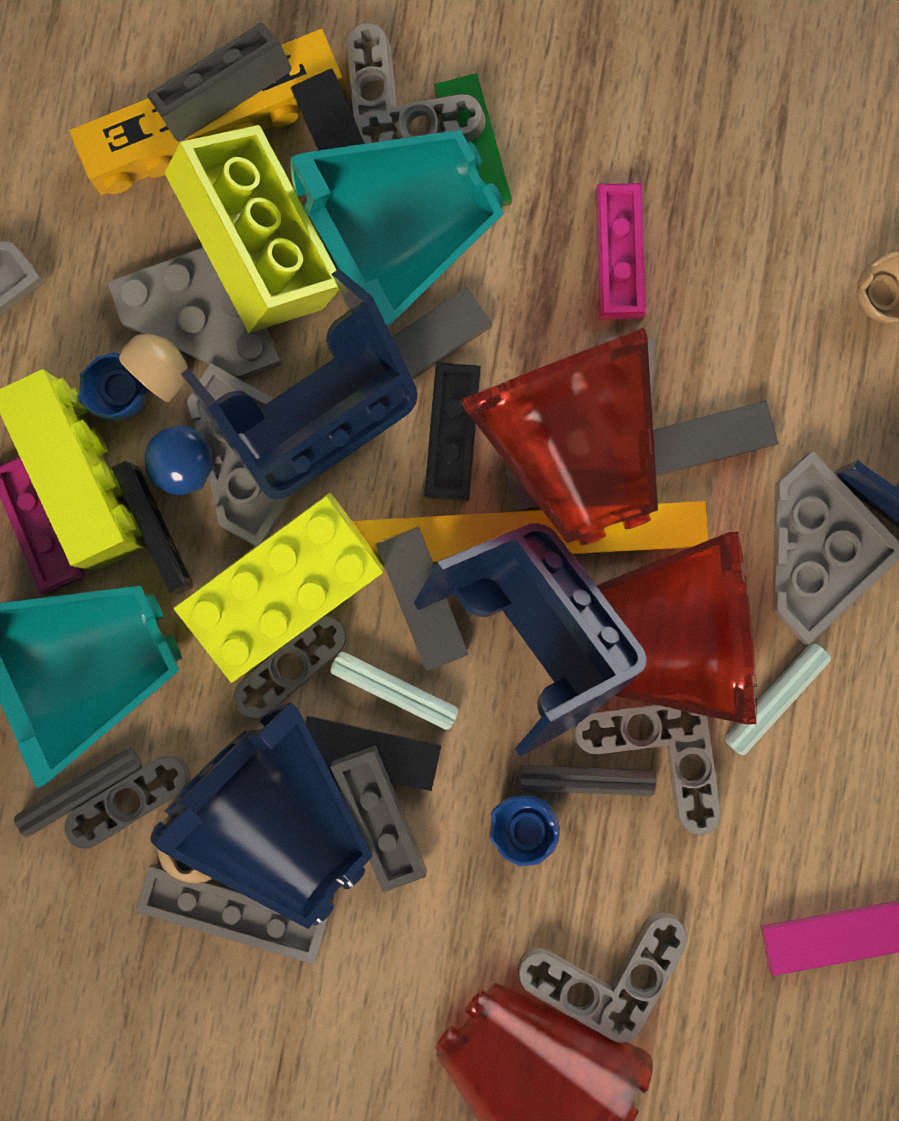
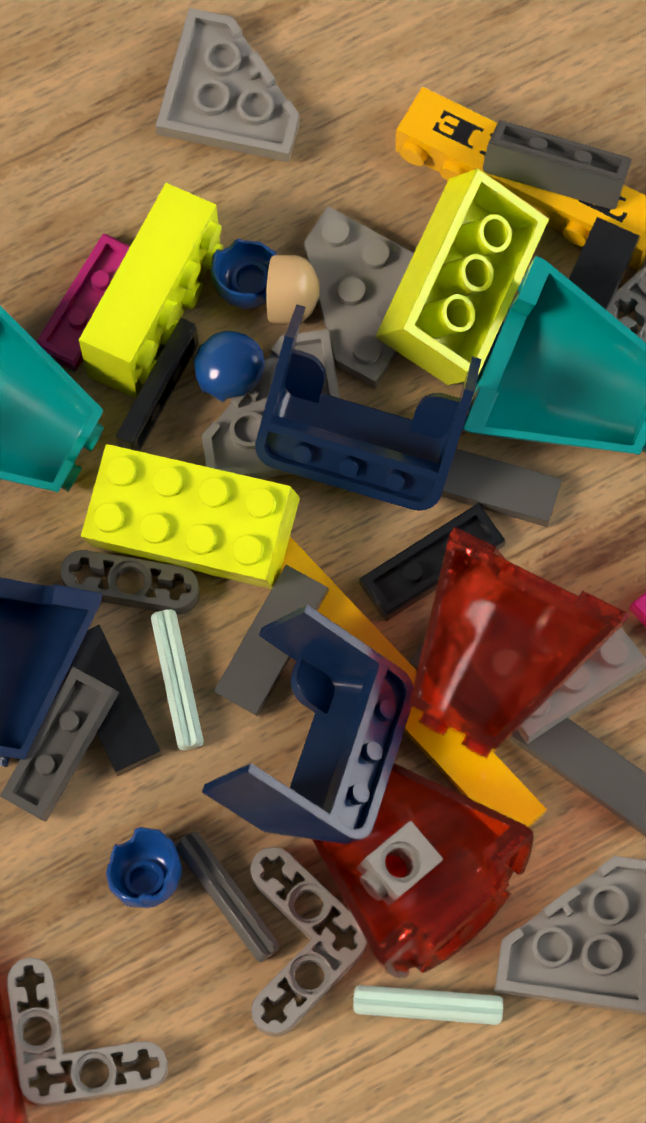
camera: 55 degrees right, 15 degrees down
(686, 630) = (414, 851): none -> light grey brick

